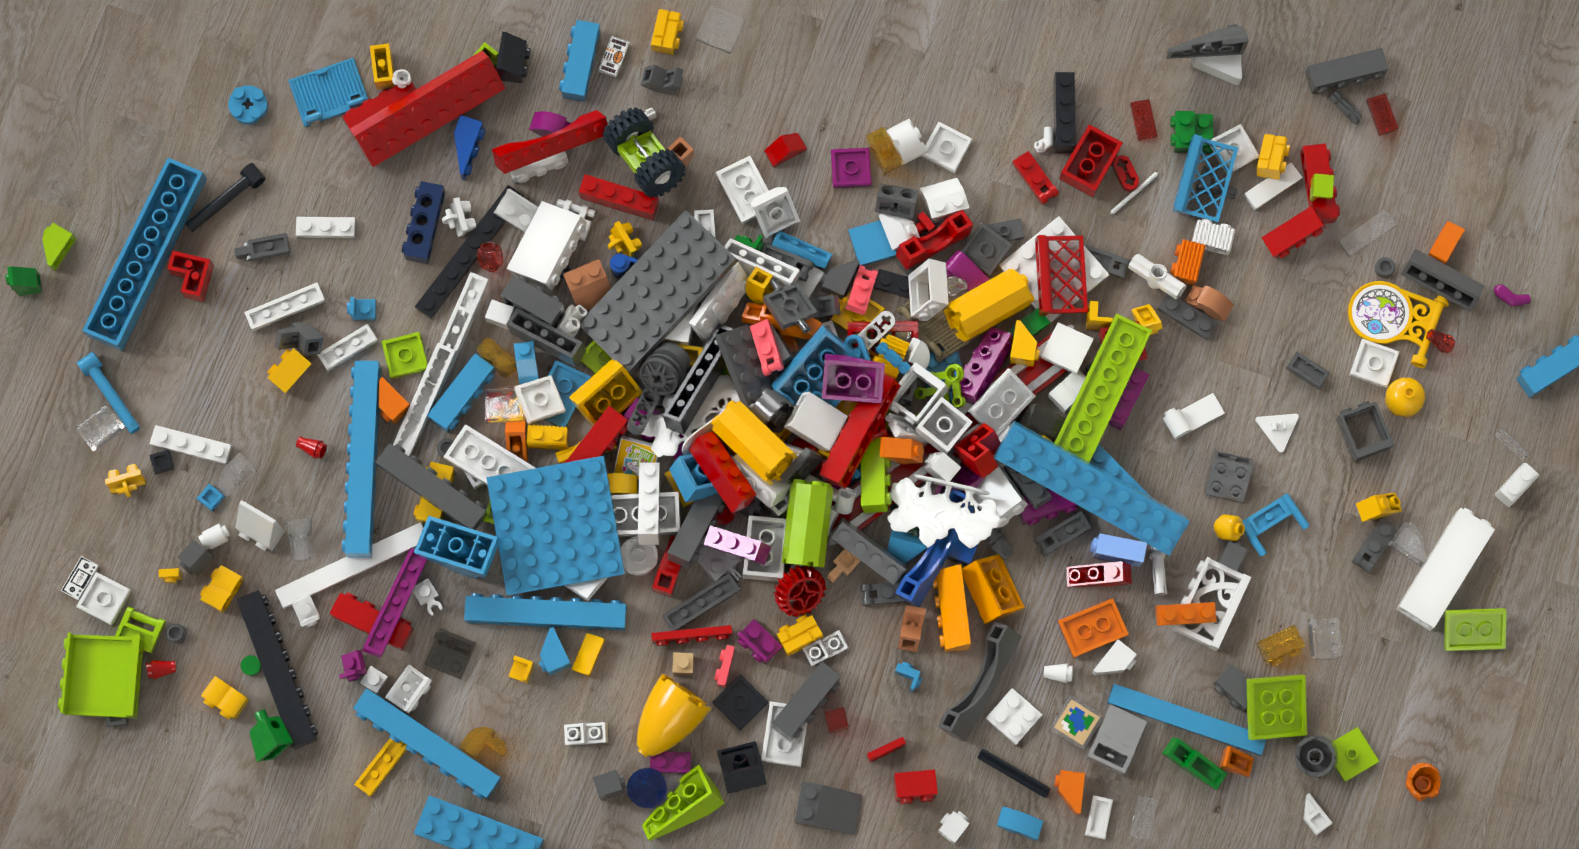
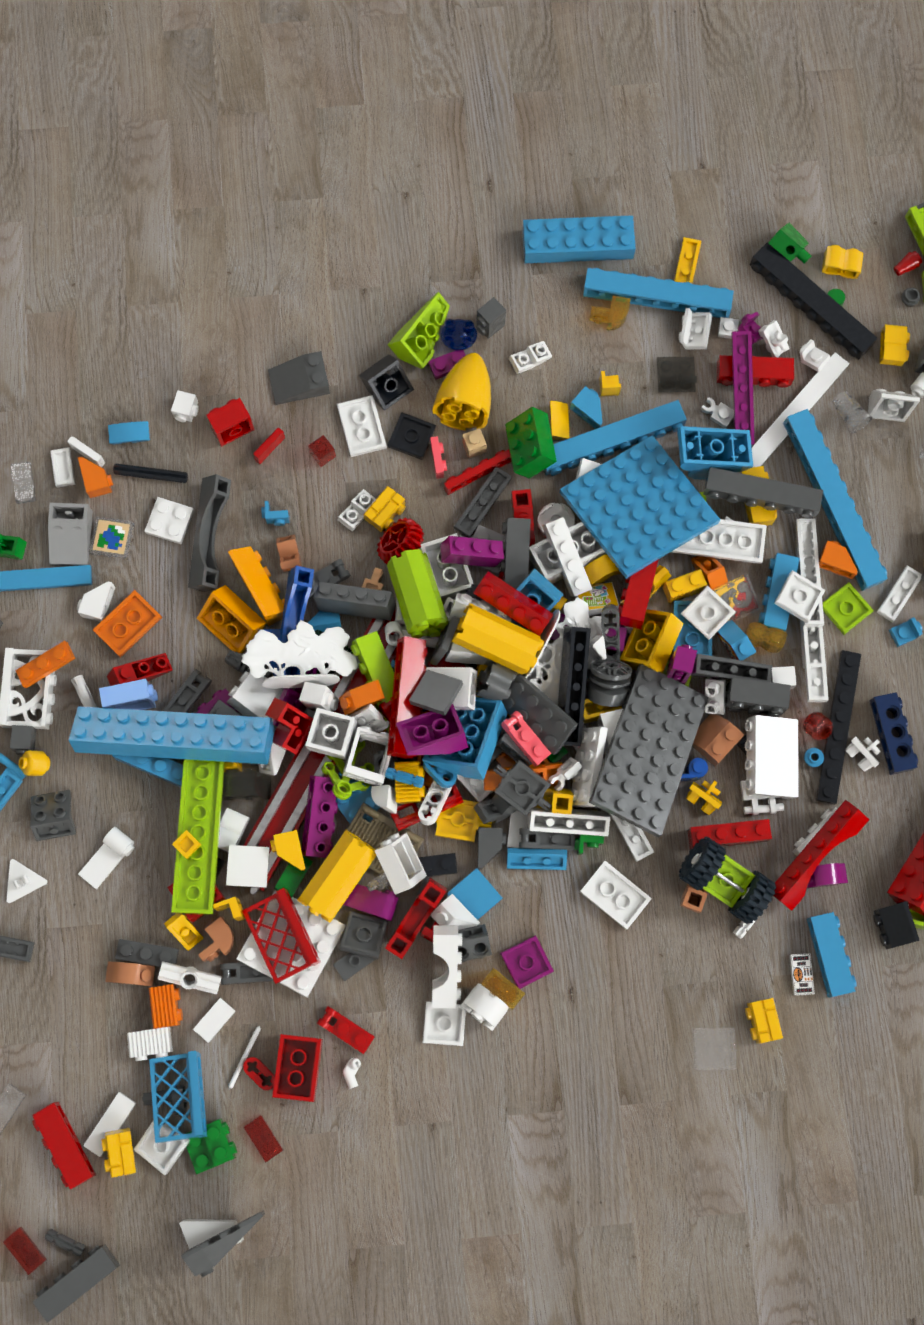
camera: 155 degrees right, 0 degrees up
(312, 447) = (883, 493): red cone -> none
(338, 642) = (774, 338): none -> white hips
(443, 446) = (770, 543): dark grey tile -> none
(447, 376) = (799, 596): none -> white plate
(467, 136) = (896, 828): blue slope -> none
(510, 238) = (809, 761): none -> dark azure plate
(516, 210) = (816, 780): white plate -> none
(592, 353) = (681, 663): none -> magenta brick
(630, 634) = (530, 442): none -> green brick
(659, 405) = (597, 647): none -> white slope
(662, 80) = (745, 968): dark grey brick -> none
(741, 306) = (566, 771): none -> white plate
(759, 642) = (418, 490): magenta bracket -> none
(774, 210) = (579, 882): white slope -> none
(784, 148) = (596, 953): red slope -> none
(806, 702) = (354, 454): dark grey brick -> none
(832, 416) = (436, 692): none -> dark grey tile
(861, 290) = (464, 841): coral plate -> none
(932, 172) = (445, 944): none -> white arch
(944, 200) = (422, 967): white slope -> none
(1002, 402) = (288, 786): white tile -> none
(1060, 672) = (143, 572): white cone -> none
(1064, 112) = (343, 1109): black brick -> none
(1069, 820) = (86, 451): none -> white tile
(1115, 298) = (222, 937): none -> nougat brick
(1115, 381) = (186, 844): none -> yellow plate
(1128, 398) = (169, 851): magenta arch -> none
(1148, 234) = (214, 1020): none -> white tile
(1294, 233) = (69, 1079): red brick -> none
(1321, 186) = (56, 1135): lime panel -> none

